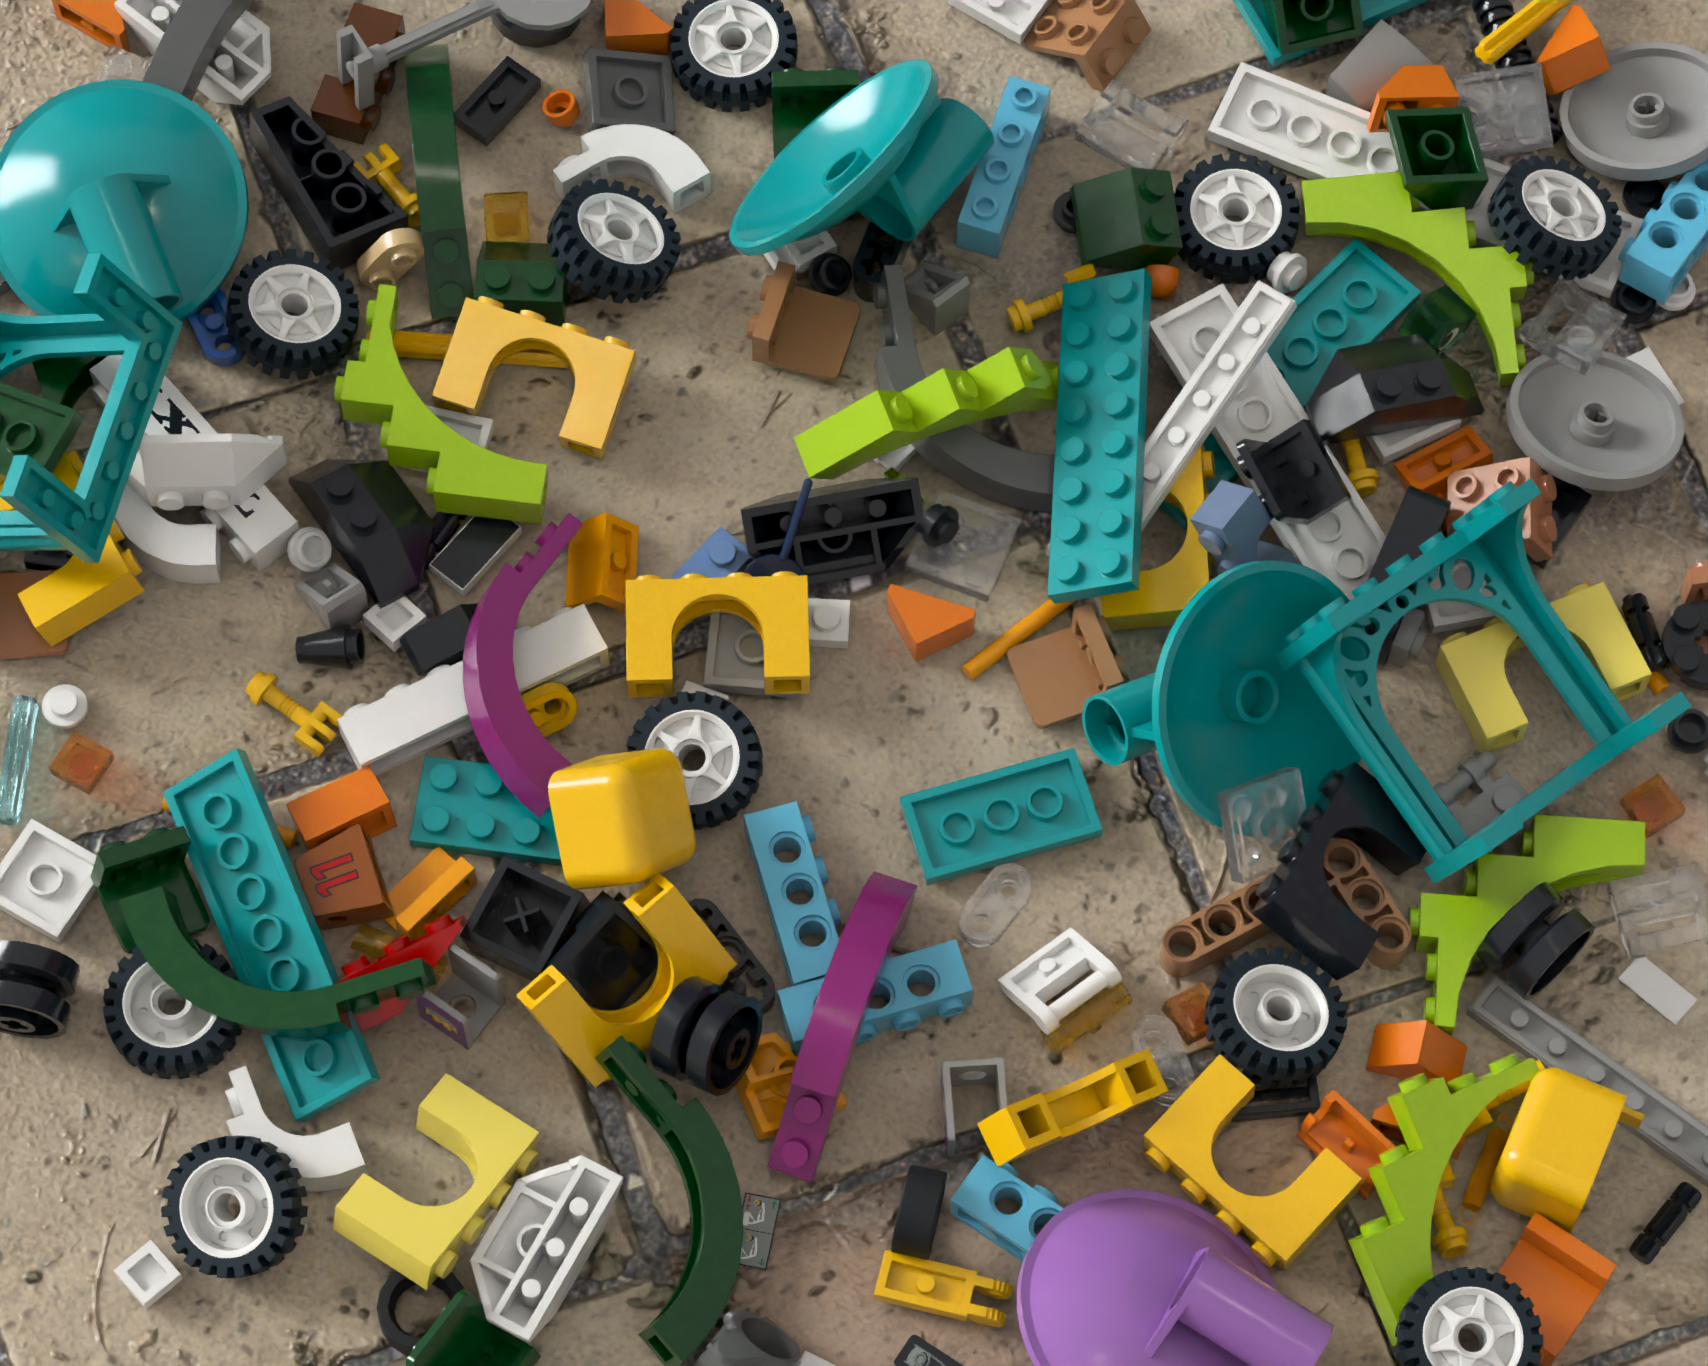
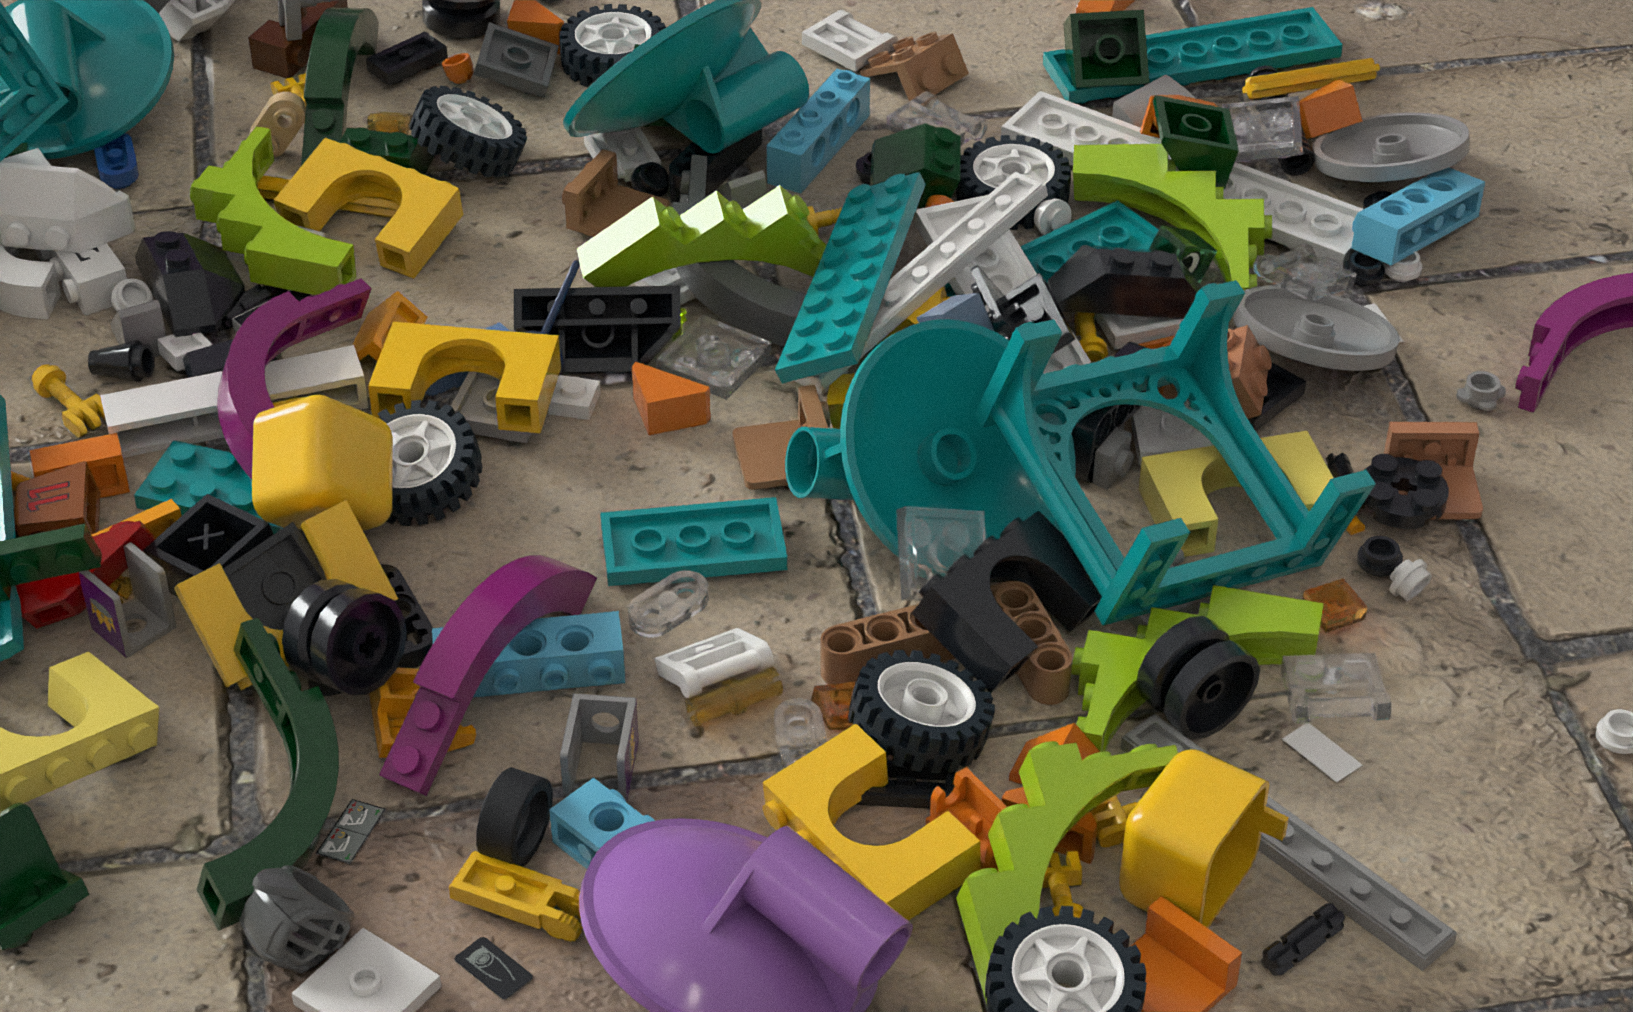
camera: 10 degrees right, 25 degrees down
(287, 342) = (175, 148): wheel -> none
(320, 184) = (234, 78): black wedge -> none
(542, 1243) = (130, 796): white wedge -> none
(638, 154) = (522, 94): white arch -> none
(767, 835) = (475, 544): medium azure brick -> none
(939, 525) = (692, 328): black plate -> none
(1013, 637) = (724, 431): light orange bar -> none
(1072, 1108) = (742, 746): yellow arch -> none
(1484, 1169) = (1105, 885): light orange piece -> none
(1554, 217) = (1296, 185): black wheel -> none

